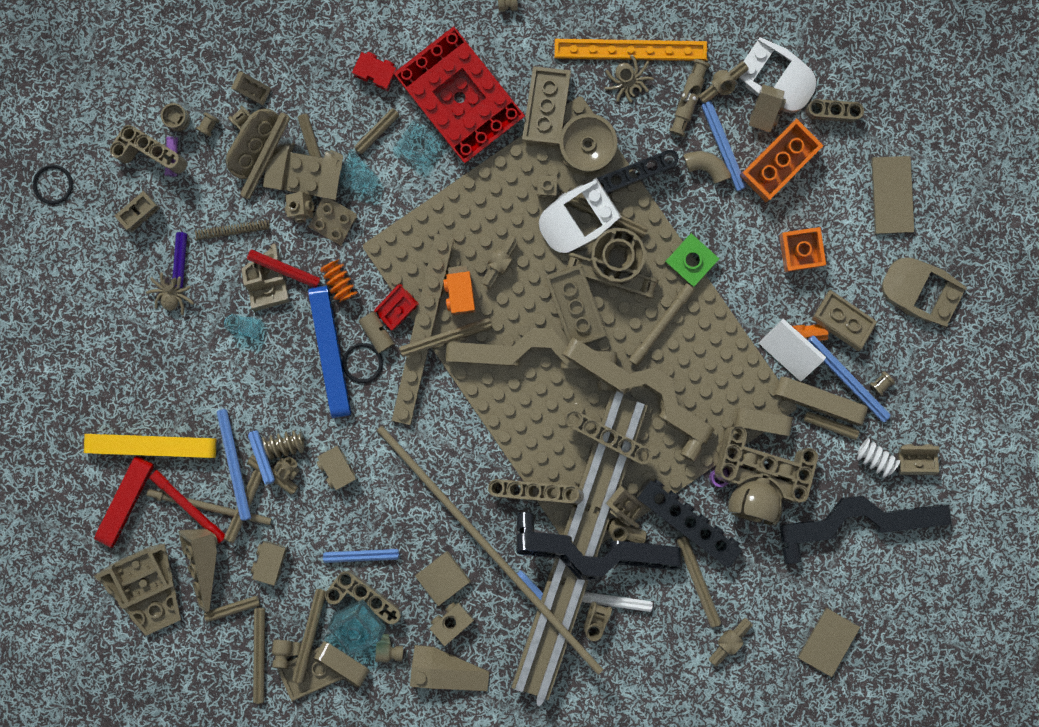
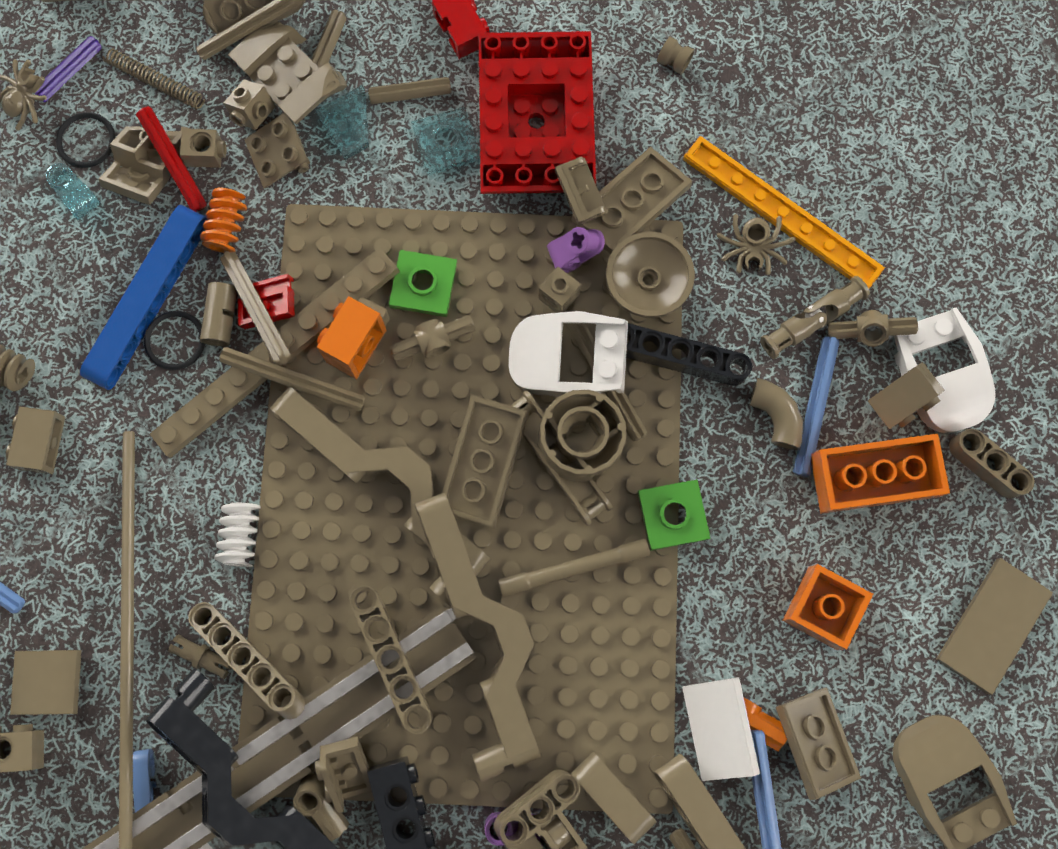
camera: 30 degrees right, 10 degrees down
(205, 291) = (70, 120): none -> black tyre
(284, 249) = (194, 139): none -> dark tan brick
(395, 314) = (255, 308): none -> axle
(470, 248) = (429, 301): none -> bright green piece
(479, 436) = (236, 534): none -> white piece
(508, 508) = (199, 656): none -> dark tan pin
(519, 124) = (580, 190): none -> dark tan hinge
(538, 156) = (575, 248): none -> medium lavender piece

